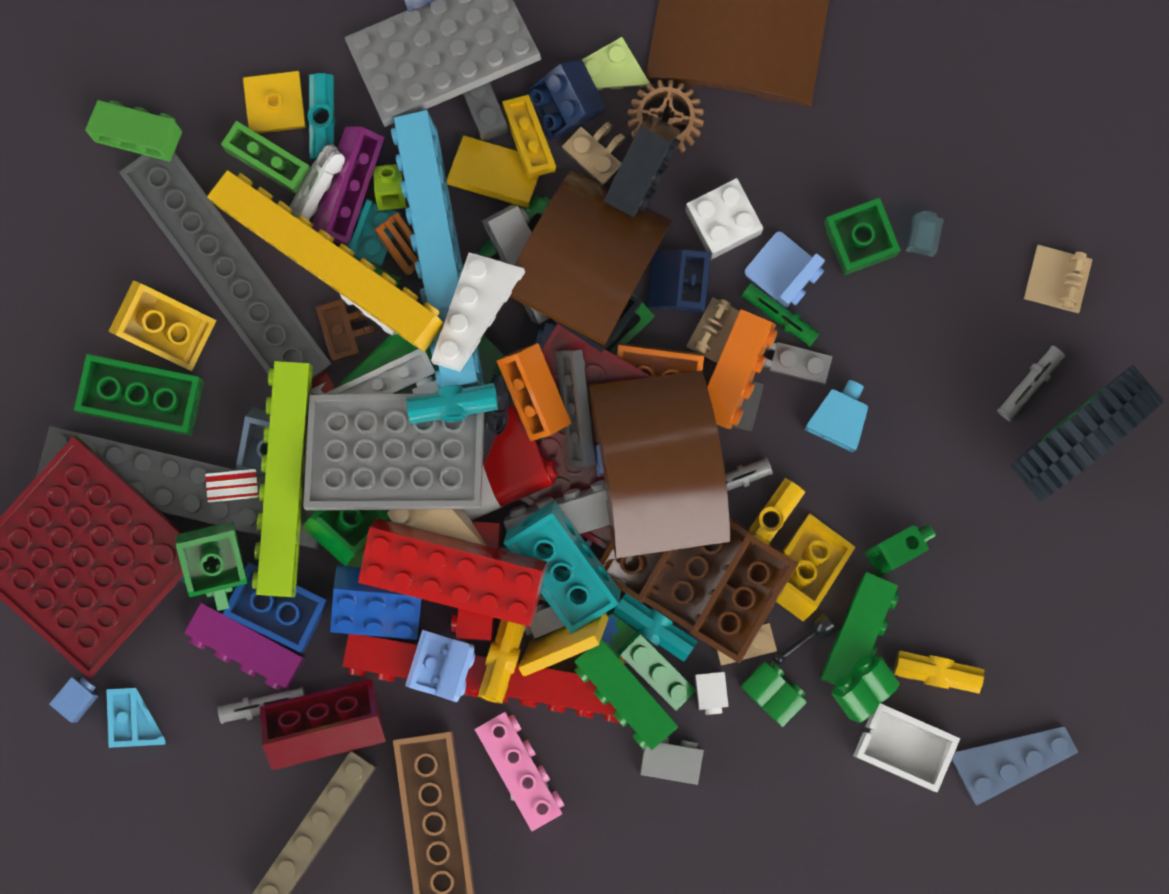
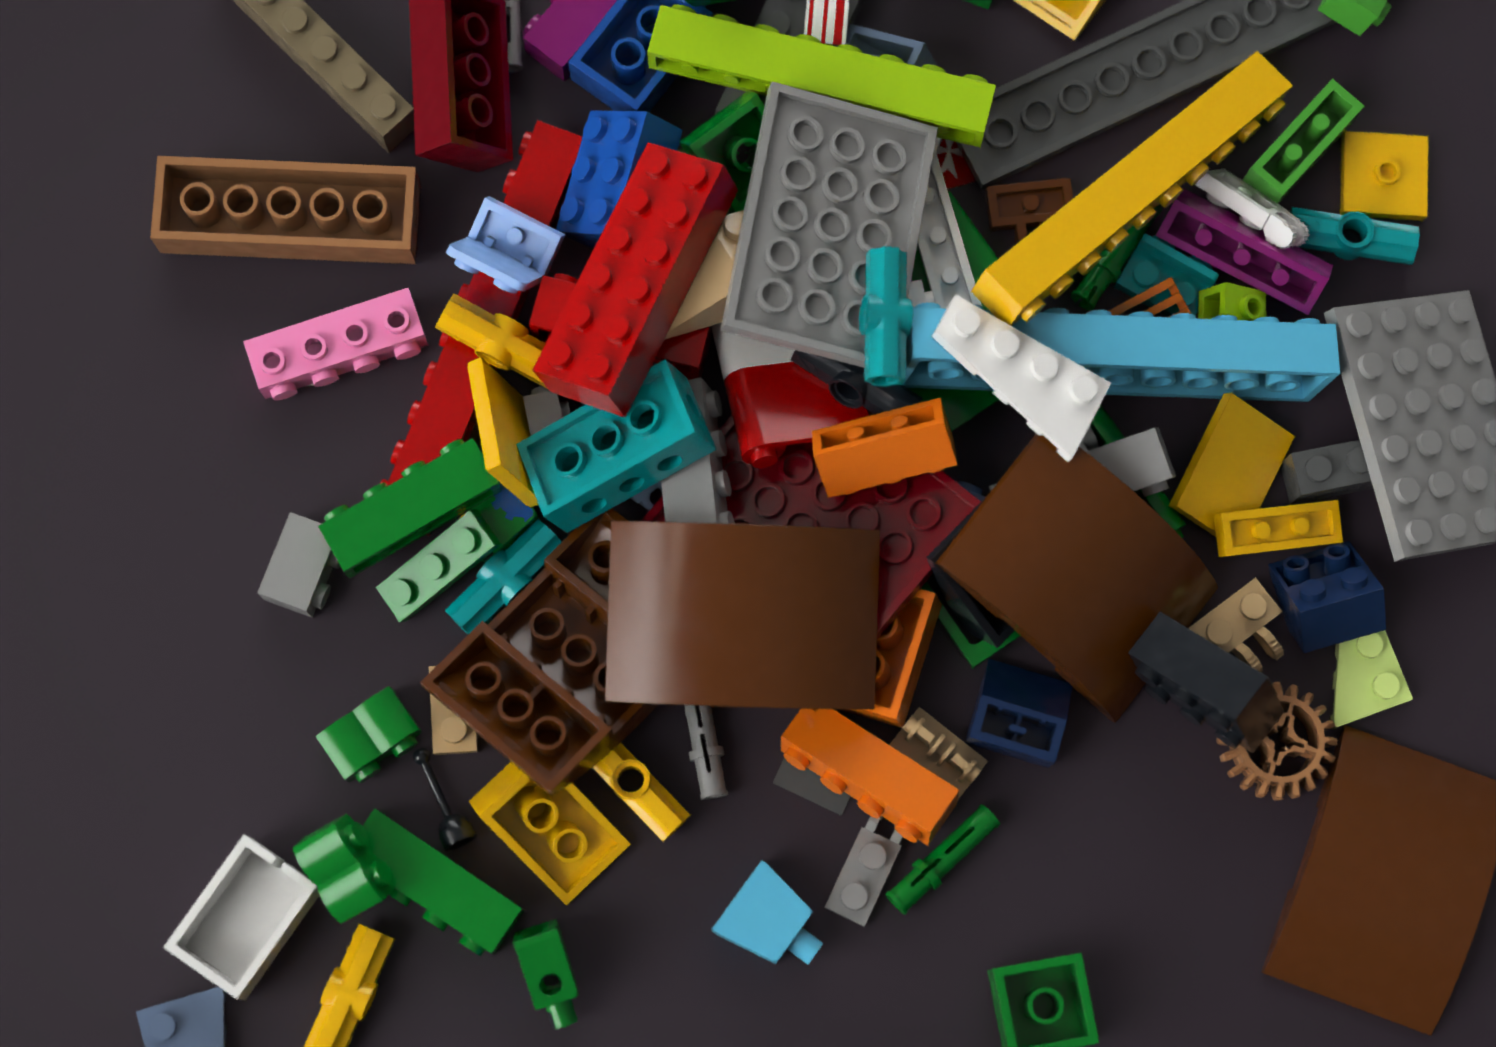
camera: 95 degrees right, 5 degrees down
(575, 399) = (868, 509): dark grey plate -> none
(711, 692) = (391, 643): white brick -> none
(724, 218) = (1105, 798): white brick -> none
(784, 270) = (1011, 877): light blue bracket -> none

